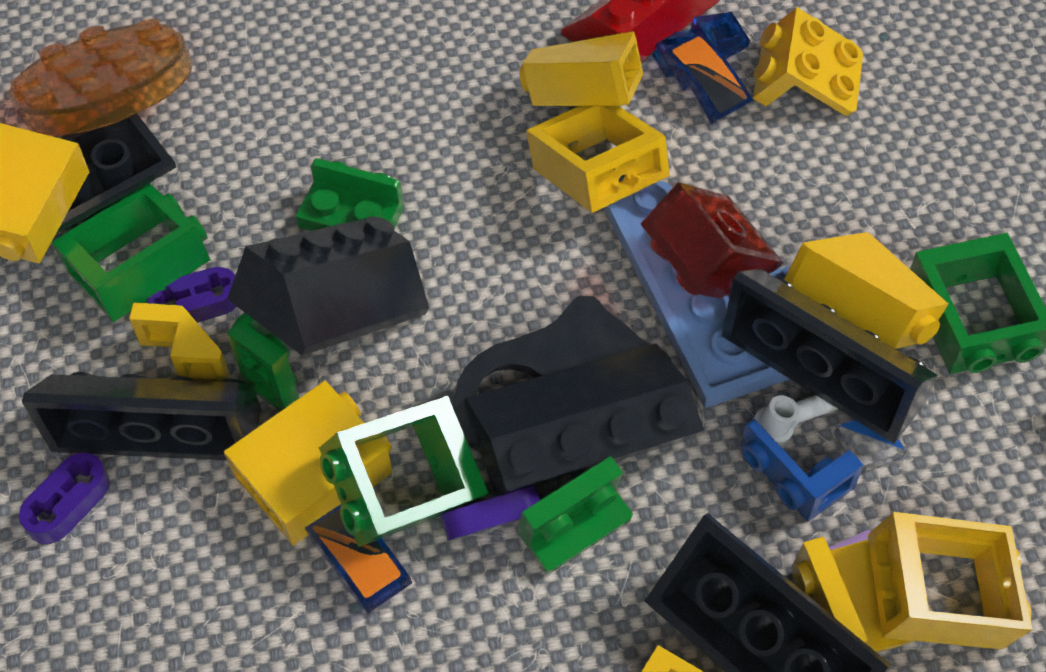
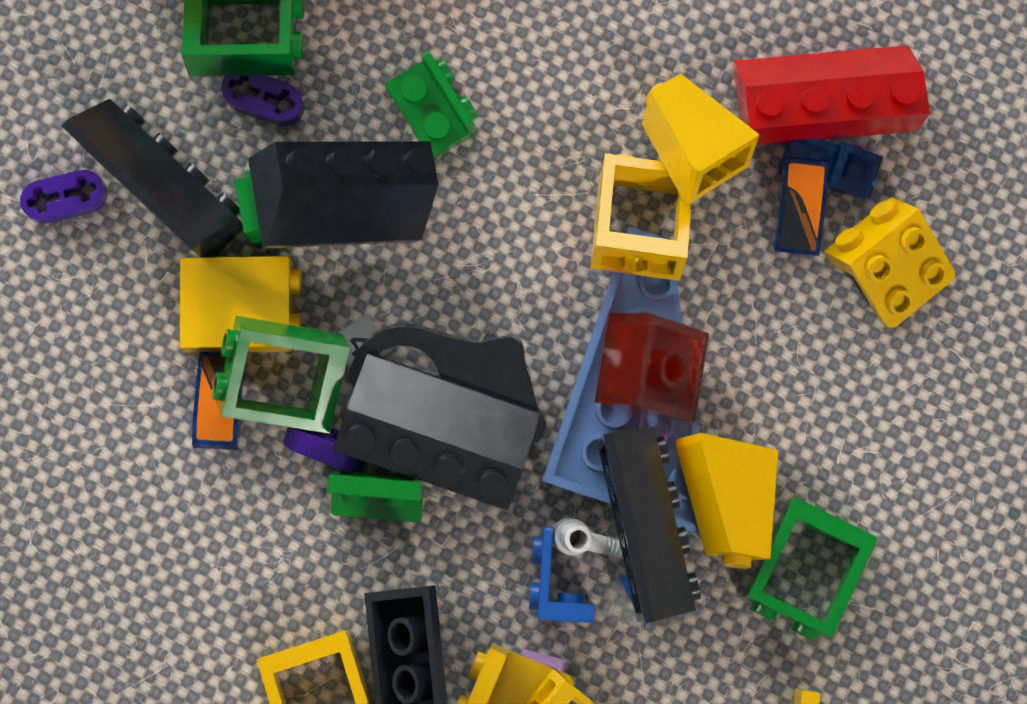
camera: 40 degrees right, 25 degrees up
(192, 349) = (226, 146): yellow slope -> none

